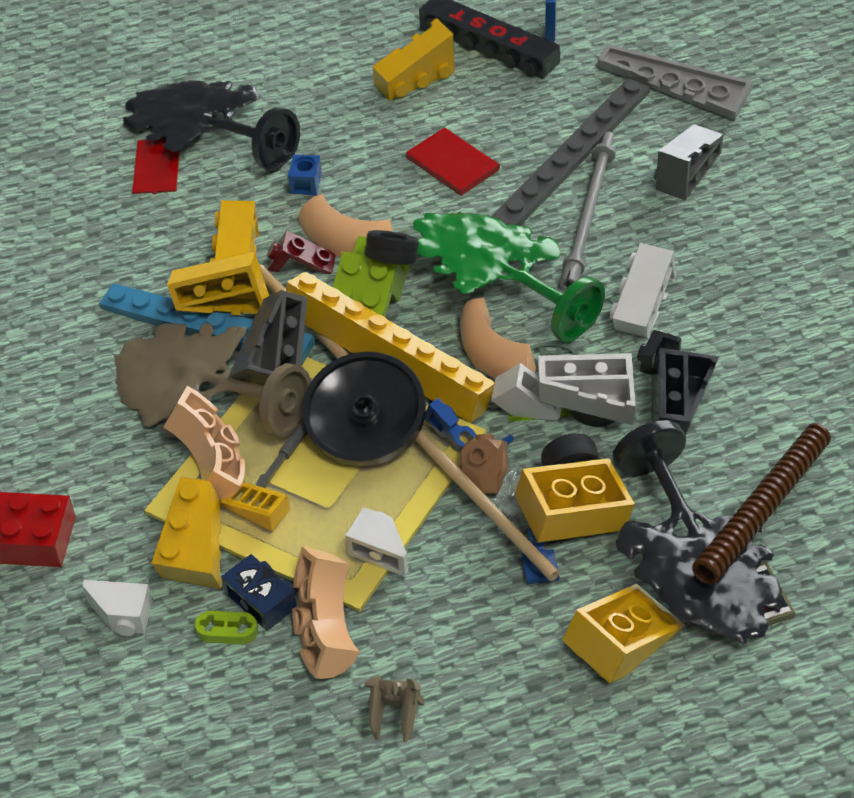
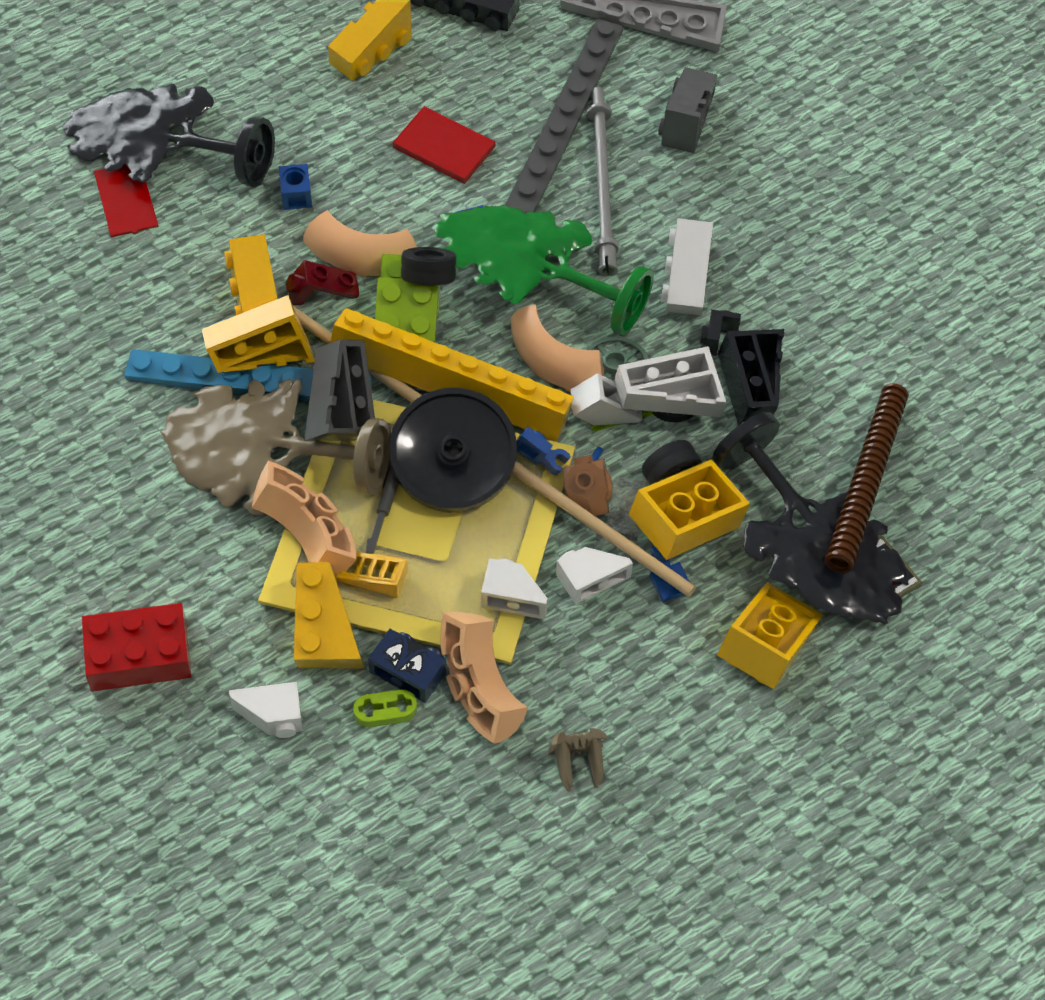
camera: 20 degrees left, 10 degrees up
(464, 542) = (591, 572): none -> white slope

